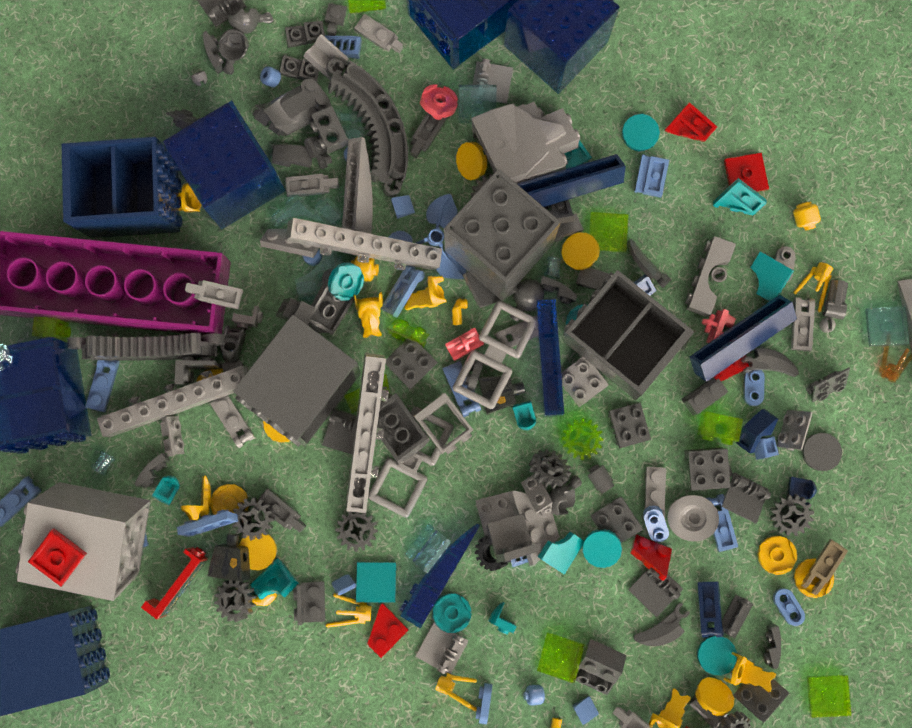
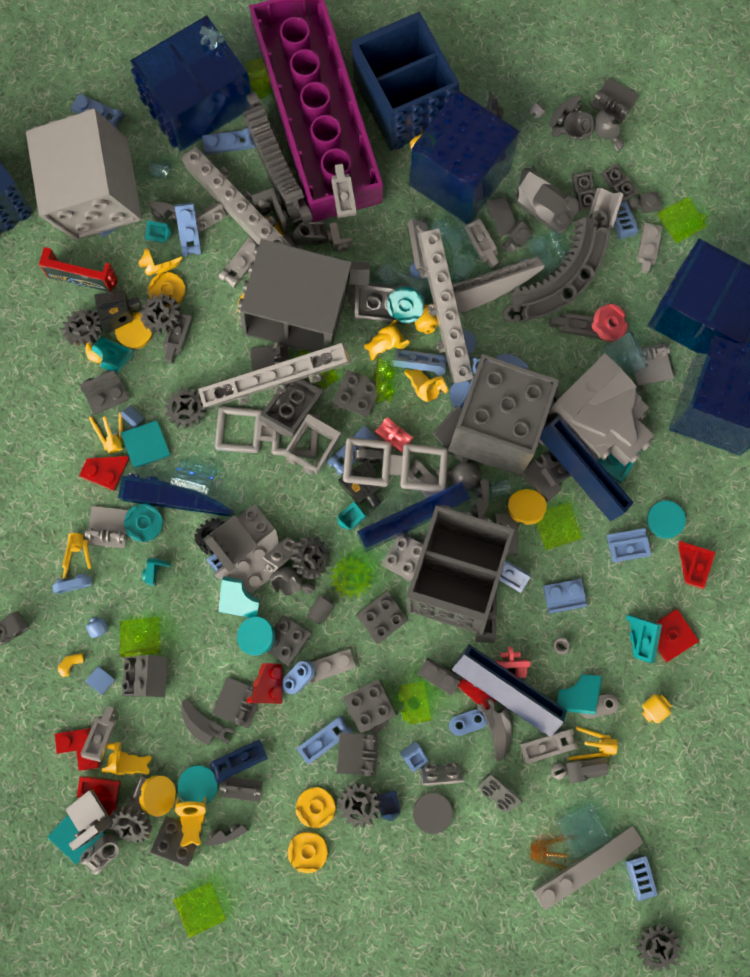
camera: 65 degrees right, 5 degrees down
(57, 557) = (57, 152): red plate -> none
(177, 458) = (187, 228): none -> medium blue plate
(207, 523) = (140, 276): medium blue plate -> none
(270, 76) = (565, 169): medium blue piece -> none
(333, 129) = (539, 237): dark grey brick -> none
(402, 206) = (498, 330): medium blue slope -> none
(456, 311) = (423, 417): yellow arm -> none
(471, 160) = (568, 372): yellow tile -> none
(646, 265) = (540, 573): dark grey piece -> none
(674, 252) = (565, 596): none -> medium blue plate
(693, 518) = (318, 710): light grey hat -> none
(702, 298) = (580, 636): light grey arch -> none
(760, 425) = (432, 740): dark blue slope -> none
(788, 606) = (270, 837): medium blue plate -> none
(825, 565) = (323, 856): dark tan hinge -> none

